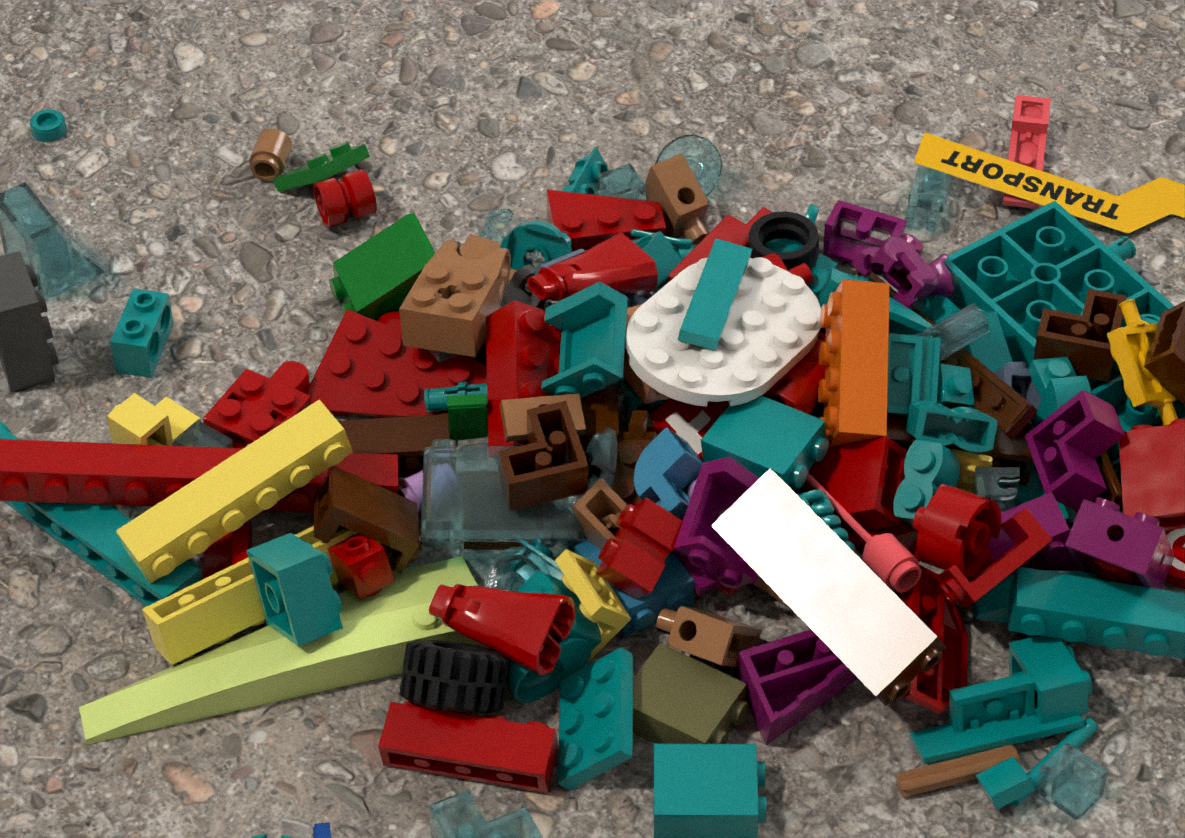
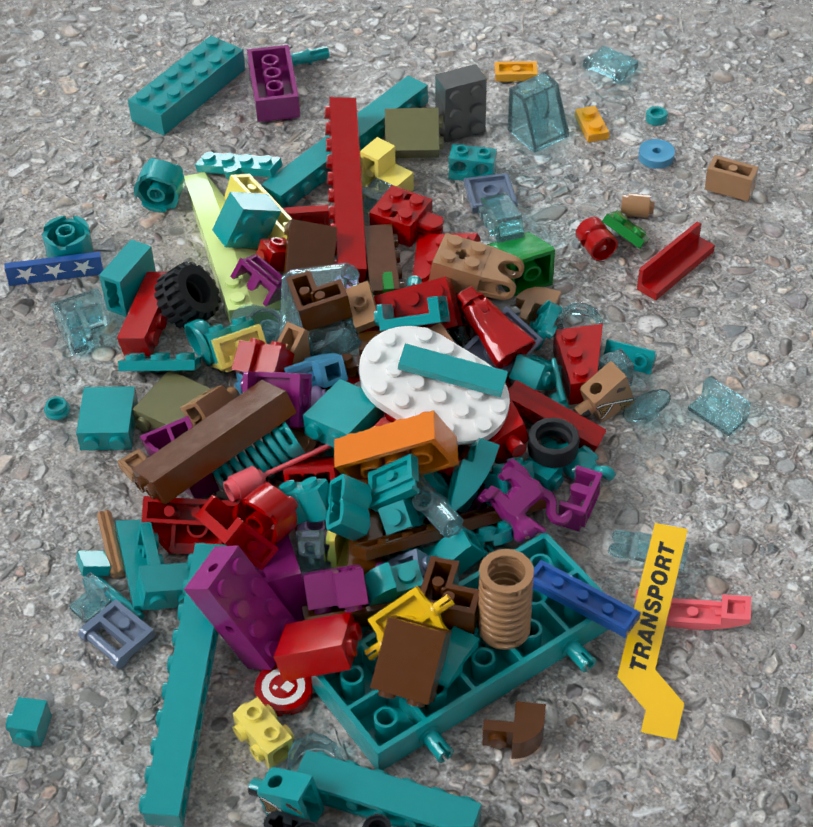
camera: 90 degrees right, 0 degrees up
(58, 396) = (414, 132): none -> olive brick
(65, 195) = (591, 124): none -> light orange plate
(91, 643) = (238, 164): none -> teal hinge
(140, 748) = (159, 185): none -> teal brick
(141, 131) = (656, 153): none -> dark azure piece
(210, 319) = (487, 186): none -> sand blue plate
(234, 47) = (731, 178): none -> medium nougat brick
(235, 491) = (318, 190): light yellow brick -> none
(298, 290) = (501, 217): none -> clear light blue brick
(388, 772) = (125, 275): none -> teal brick
(398, 128) = (674, 262): none -> red panel
(434, 562) = (261, 274): none -> magenta window
(508, 621) = (206, 309): red piece -> none
(682, 106) = (720, 407): none -> clear light blue panel
(794, 754) = (130, 461): none -> medium nougat tile
(1051, 227) = (584, 599): none -> blue tile
(1109, 248) = (505, 598): none -> medium nougat piece
(1116, 737) = (121, 625): none -> sand blue plate

